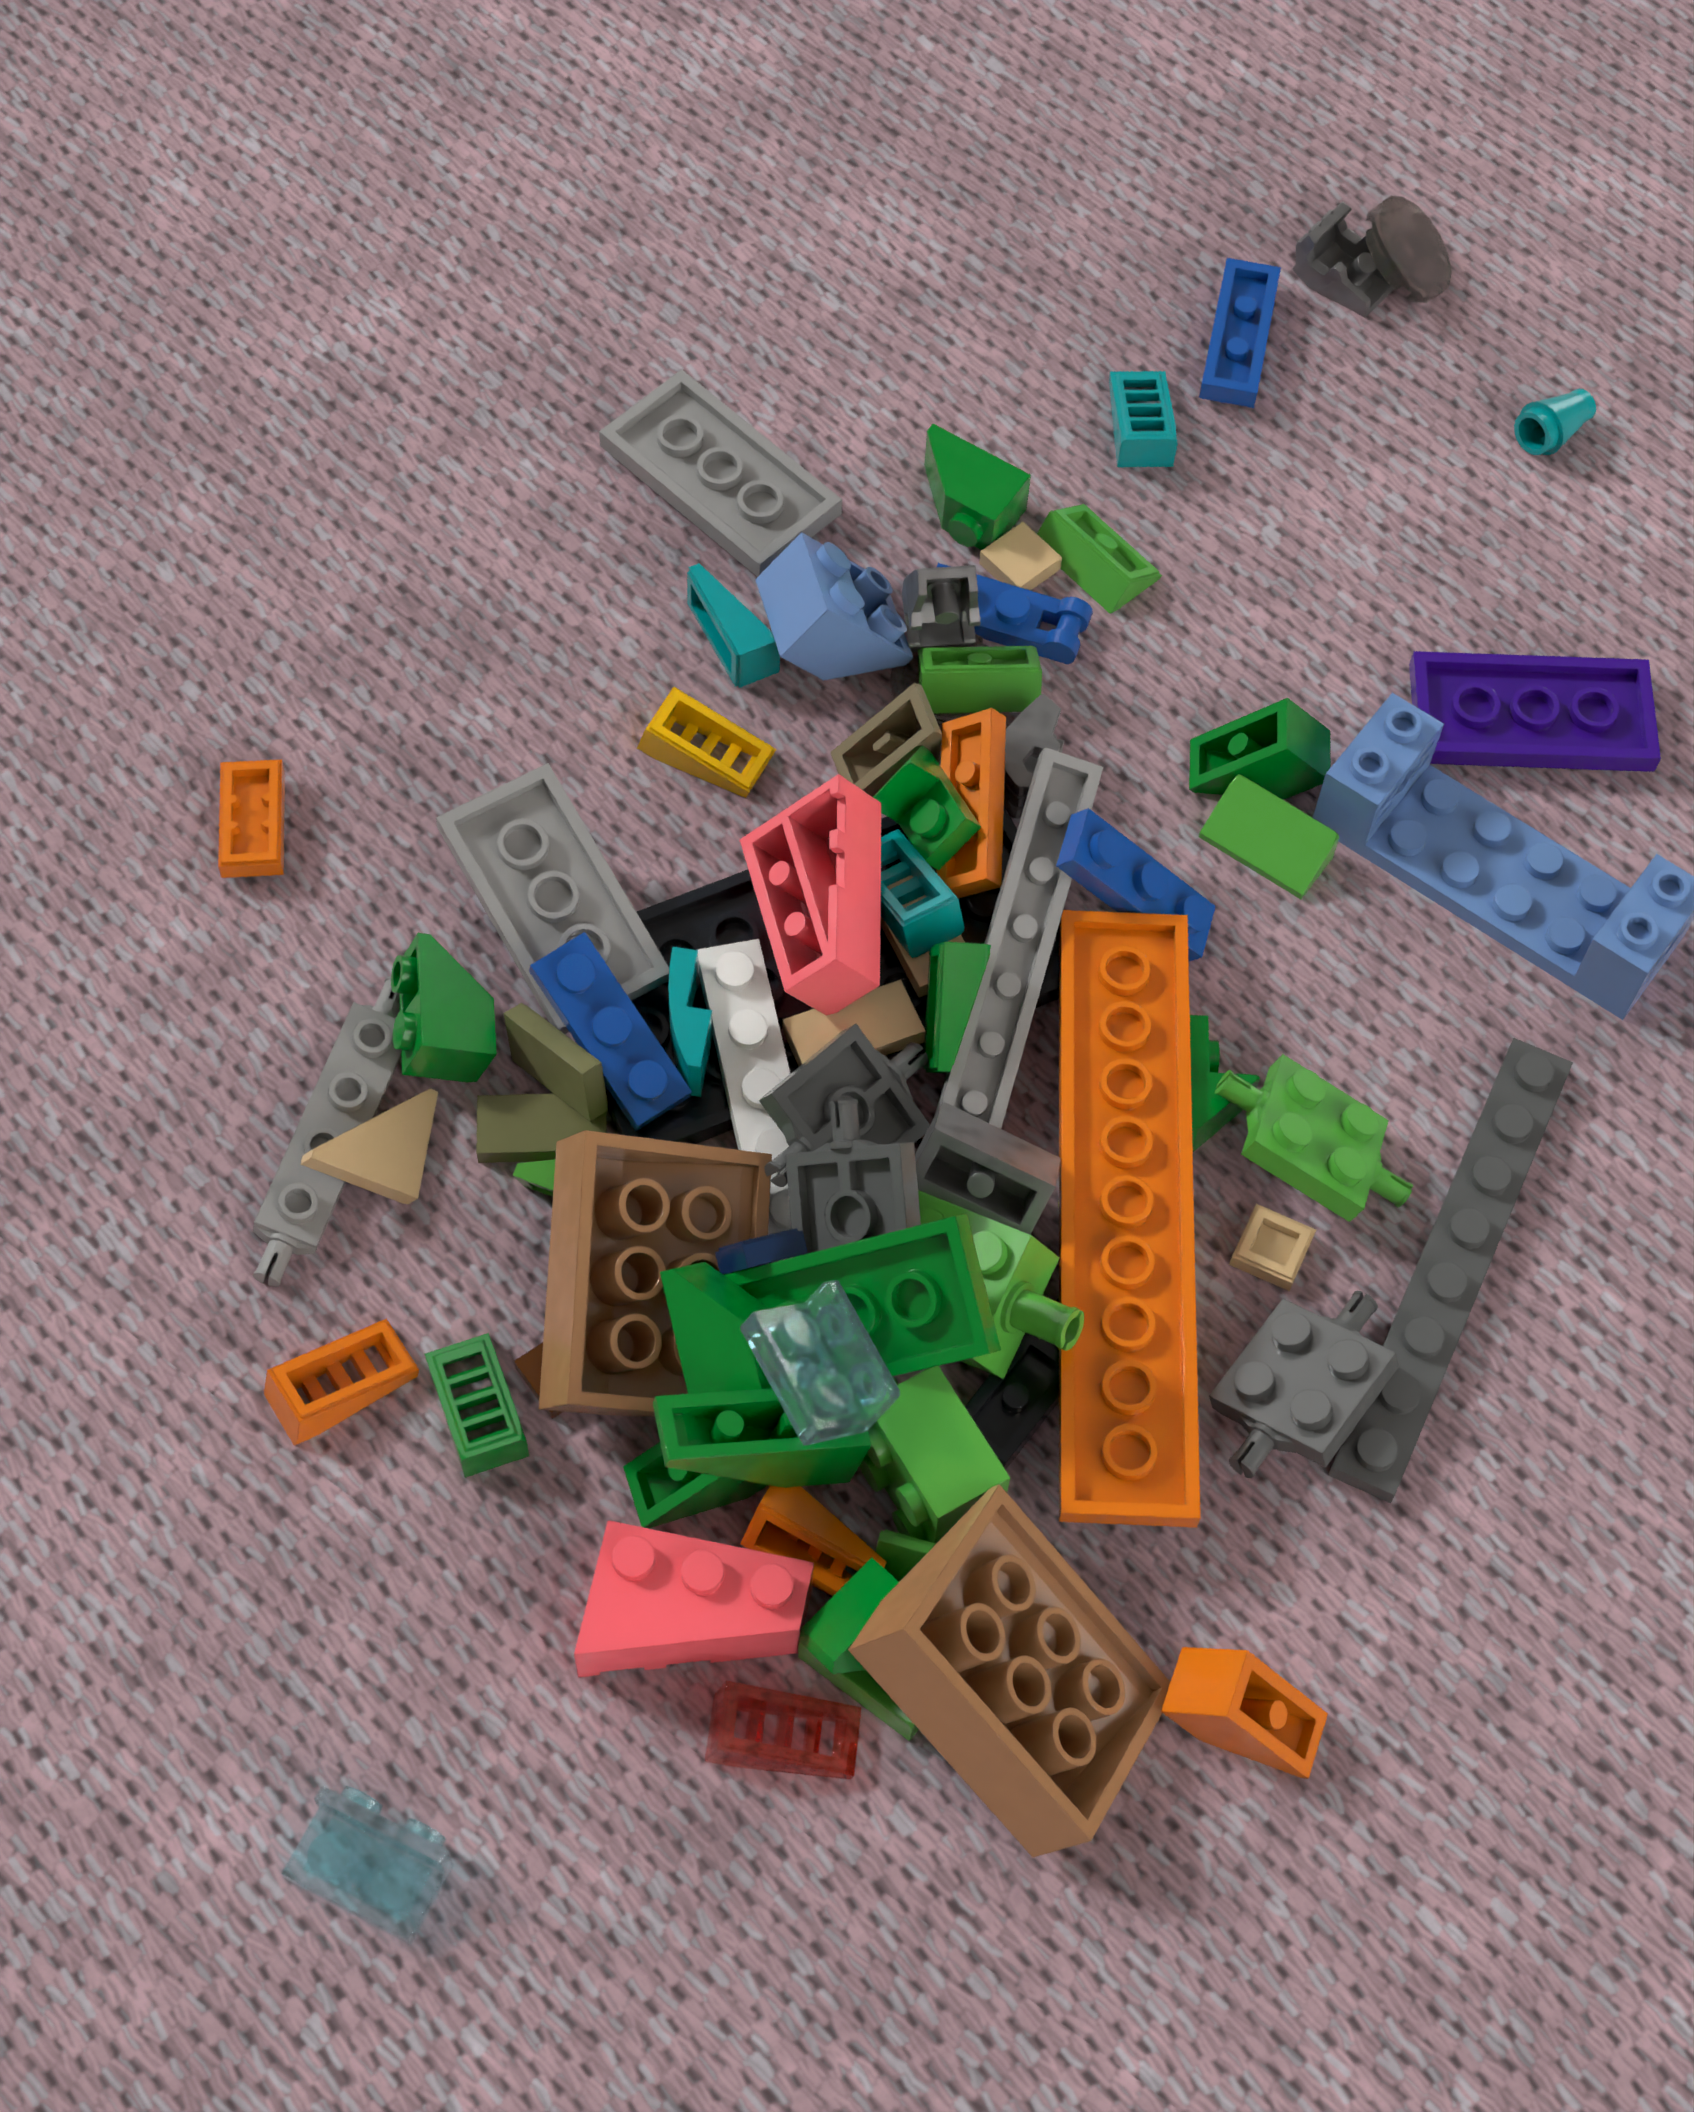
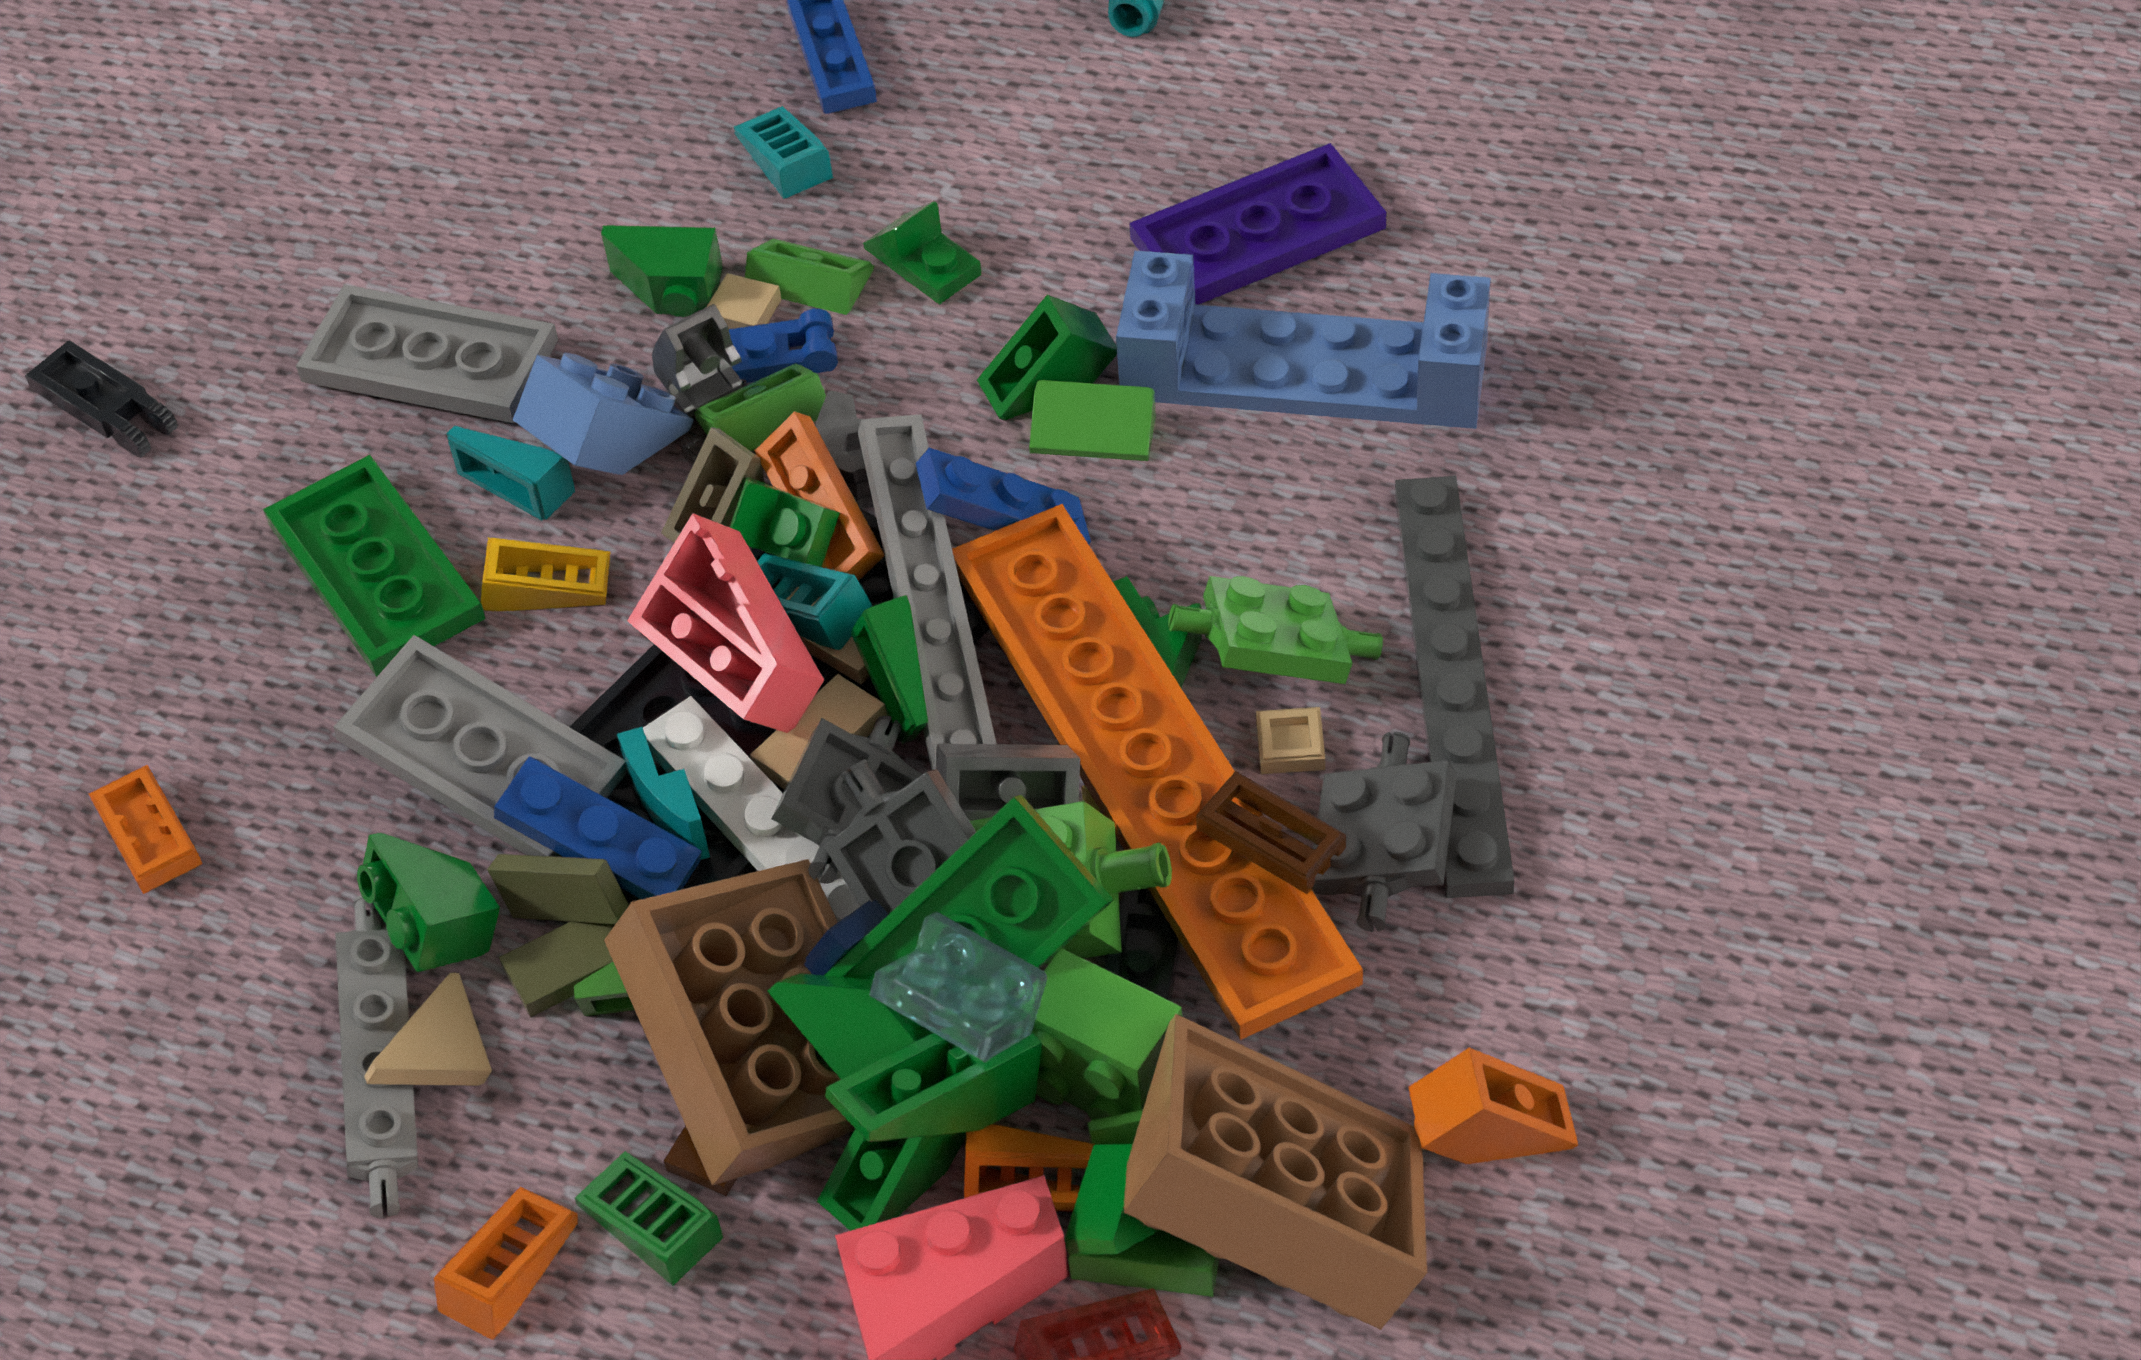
camera: 20 degrees left, 10 degrees down
(421, 376) = (99, 396): none -> black hinge
(567, 661) = (373, 563): none -> green plate
(1210, 588) = (923, 254): none -> green slope
(1215, 1391) = (1263, 839): none -> reddish brown tile

